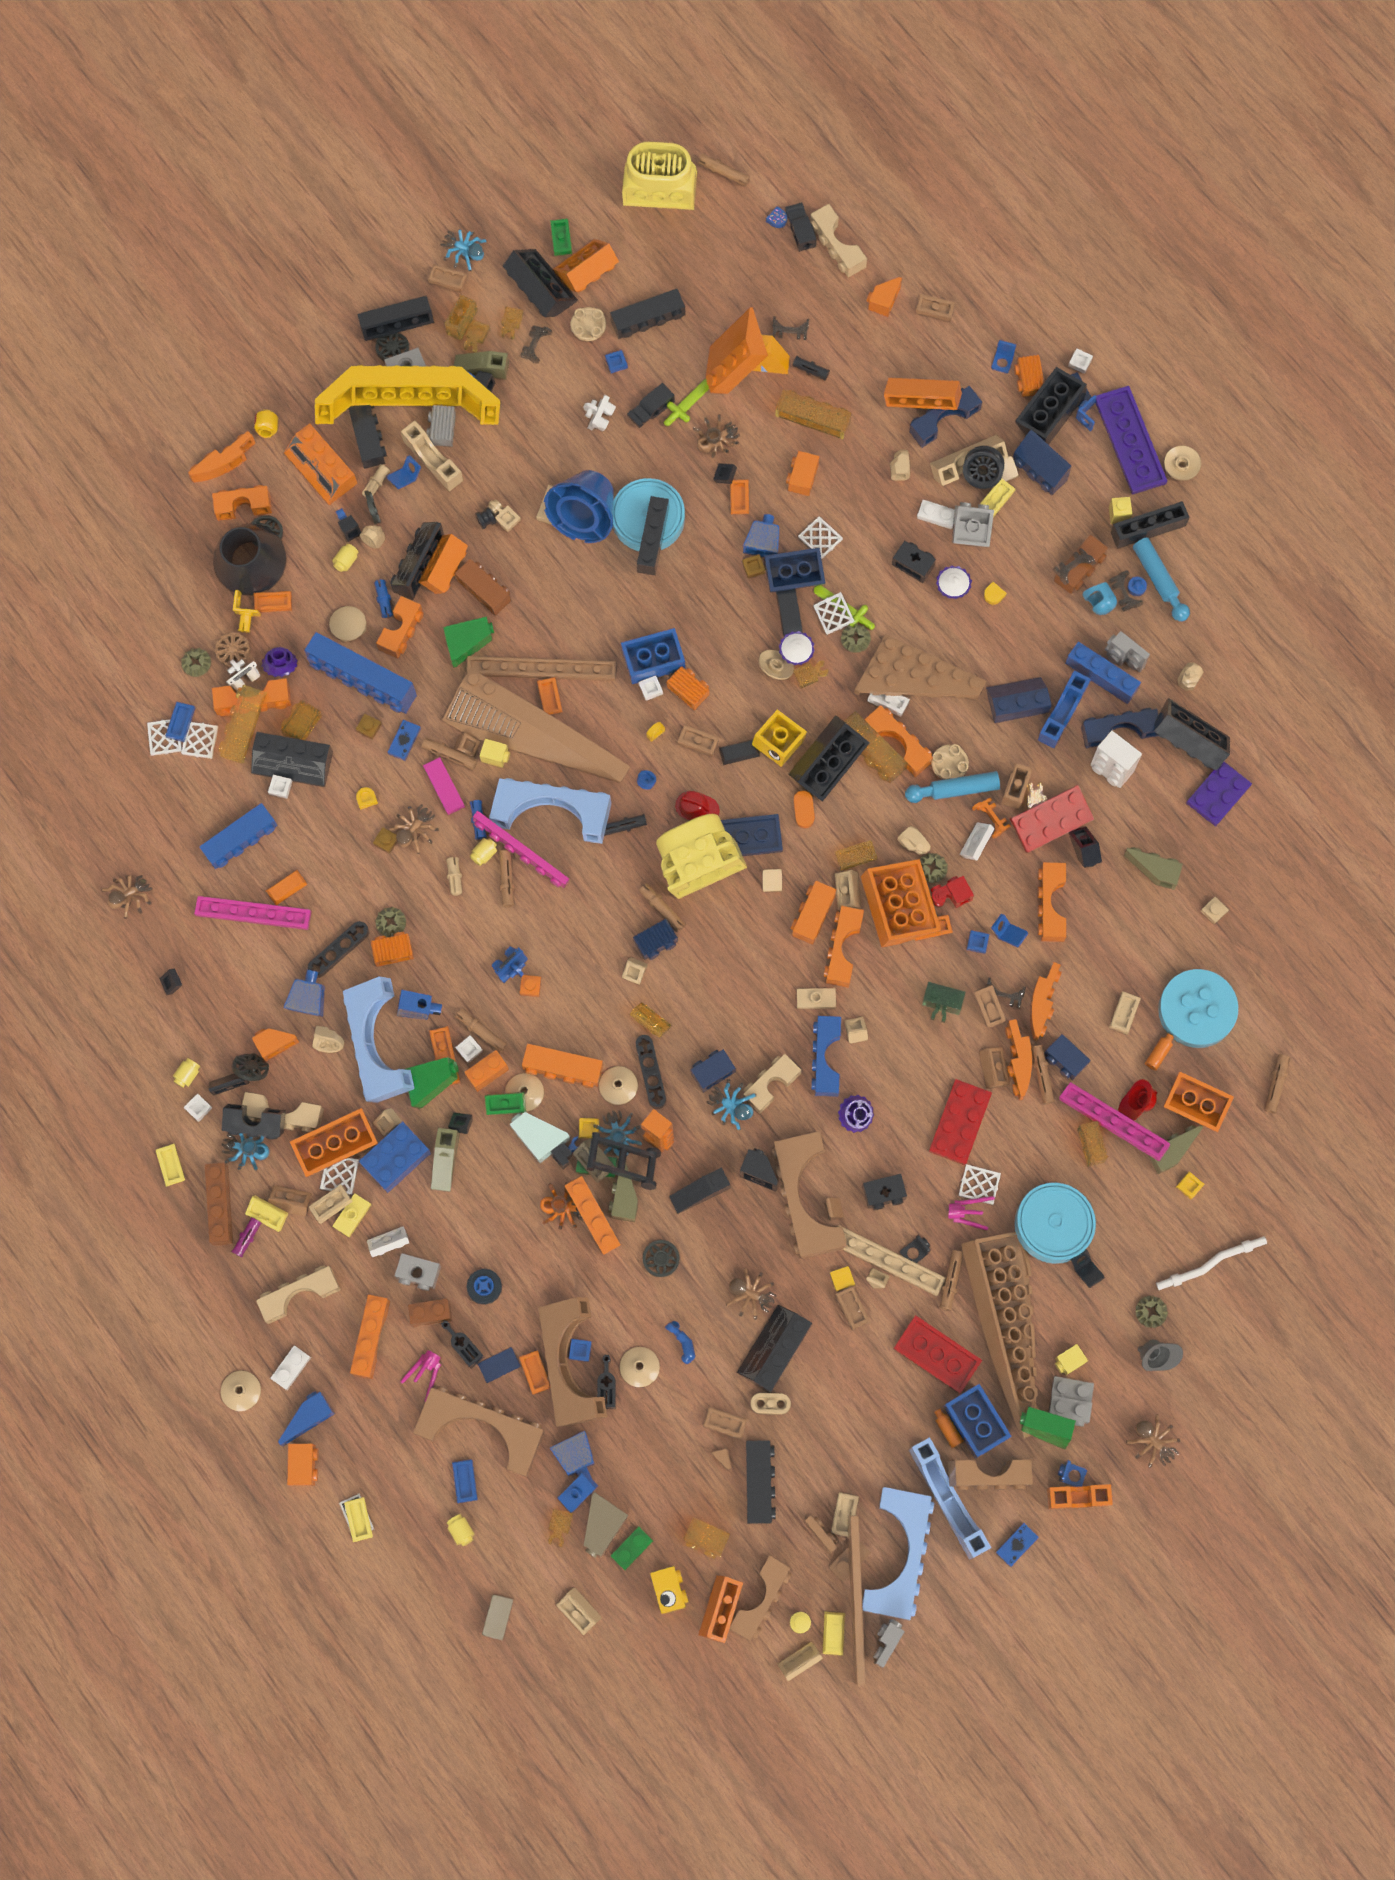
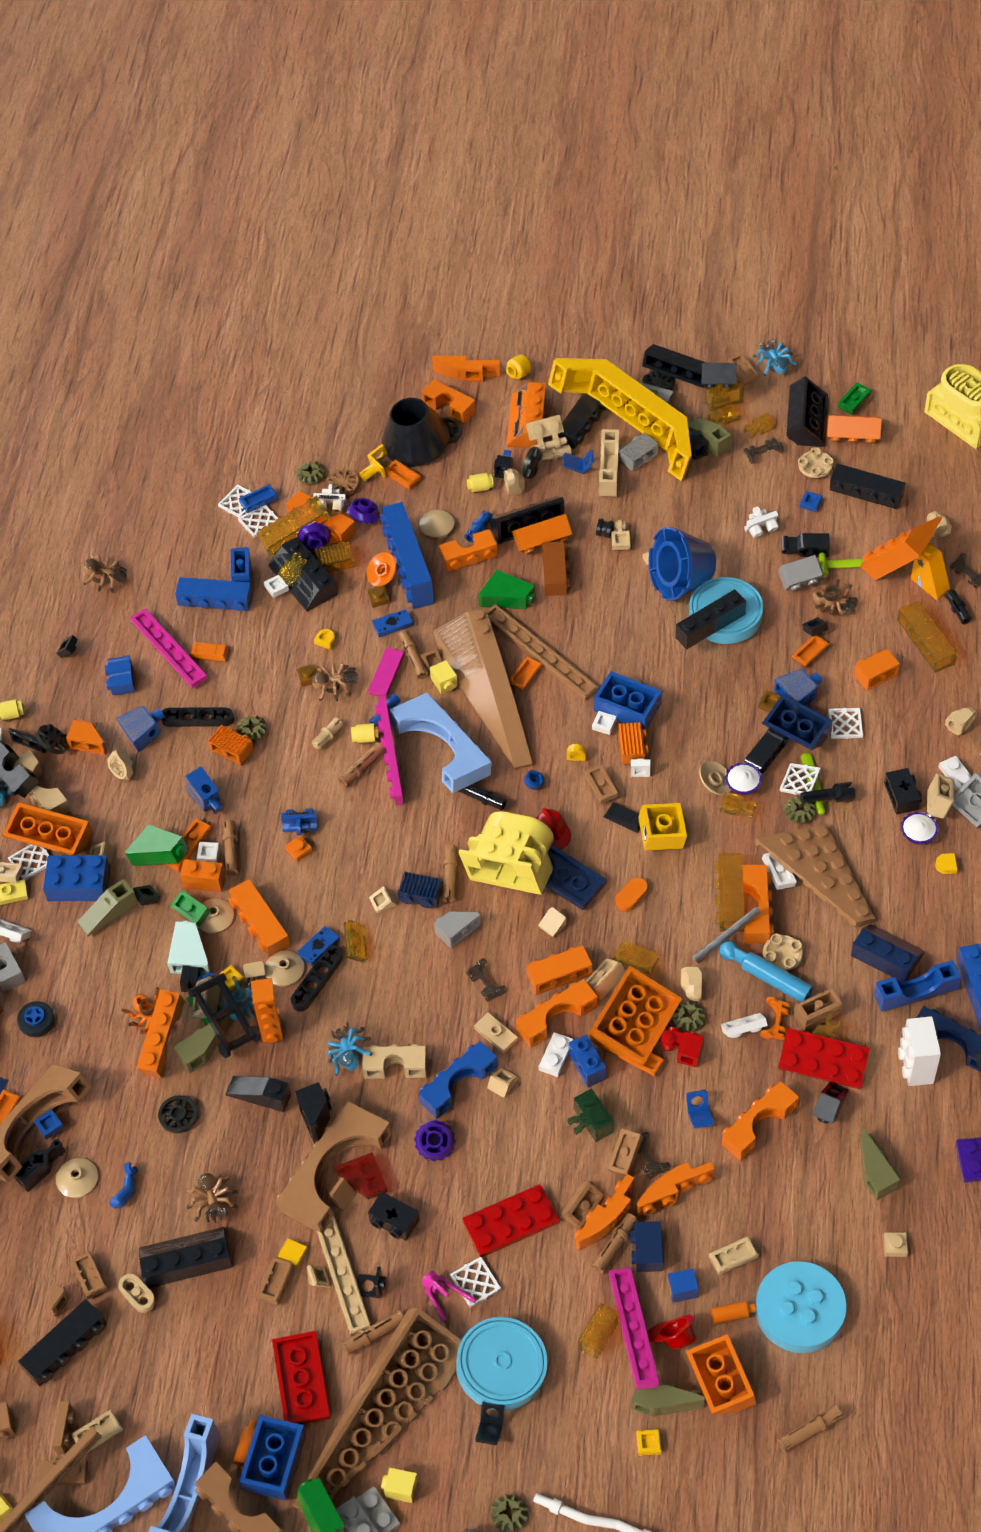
camera: 45 degrees right, 20 degrees down
(237, 795) = (241, 565): none -> blue brick
(241, 968) = (120, 675): none -> blue brick
(269, 719) = (314, 535): none -> dark purple piece
(282, 765) = (290, 570): none -> clear yellow plate
(343, 706) = (381, 569): none -> orange dish
(354, 469) = (546, 427): none -> tan plate
(362, 1007) = (125, 816): light blue arch -> none
(446, 303) = (719, 374): none -> black slope
(601, 1106) = (254, 969): none -> tan slope
(625, 1047) = (317, 944): none -> blue tile
(672, 436) = (800, 573): none -> light grey brick
(708, 945) = (456, 926): none -> light grey slope
(713, 1070) = (361, 1014): dark blue brick -> none
(714, 702) = (640, 768): none -> white plate
(730, 304) = (944, 526): none -> tan rock
(756, 962) = (477, 972): none -> clear smoke piece
(829, 758) = (685, 869): black slope -> none
(835, 1182) = (363, 1175): none -> clear red wing
(872, 601) = (839, 792): none -> black piece
(872, 977) = (555, 1055): none -> white plate
(900, 963) = (587, 1060): none -> blue brick
(903, 783) = (726, 934): none -> flat silver bar
(946, 544) = (940, 796): none -> tan brick
(978, 942) = (667, 1100): blue tile -> none
(1115, 1062) = (683, 1285): none -> blue panel

